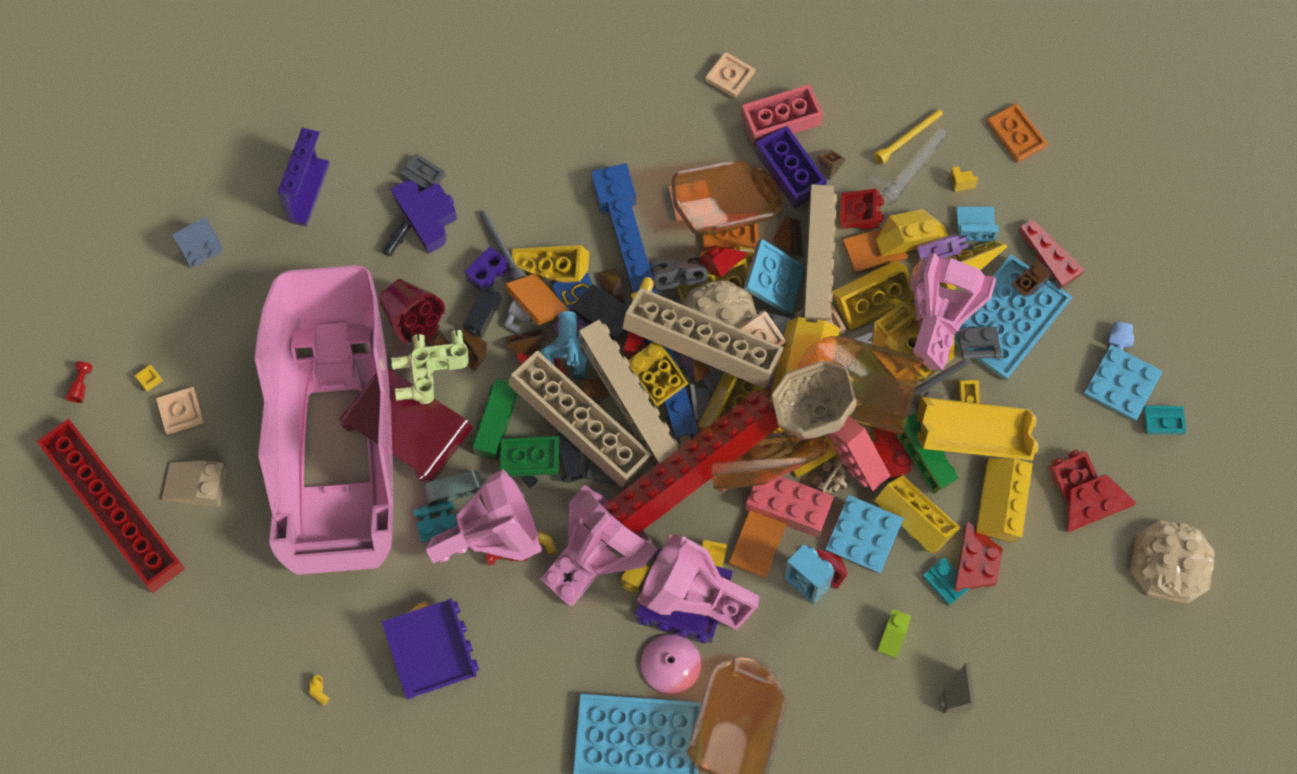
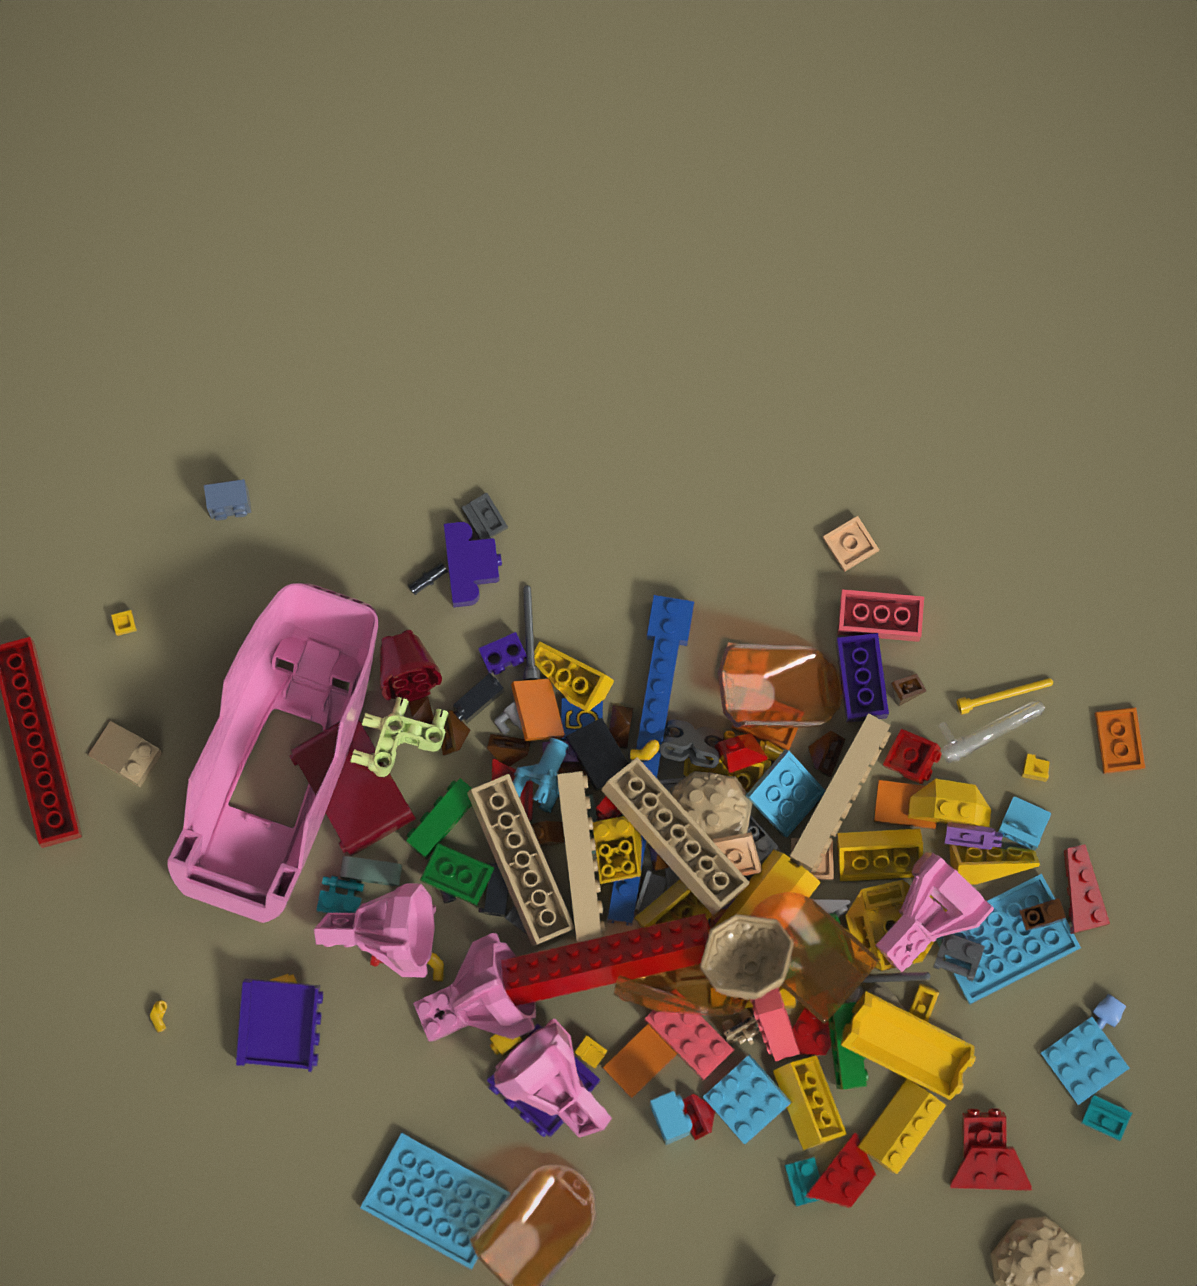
camera: 25 degrees right, 10 degrees up
(77, 388) = (50, 604): red piece -> none
(180, 410) = (141, 671): light nougat plate -> none
(302, 178) = (359, 477): dark purple panel -> none
(670, 677) = (505, 1156): bright pink dish -> none
(894, 633) = (727, 1211): lime slope -> none

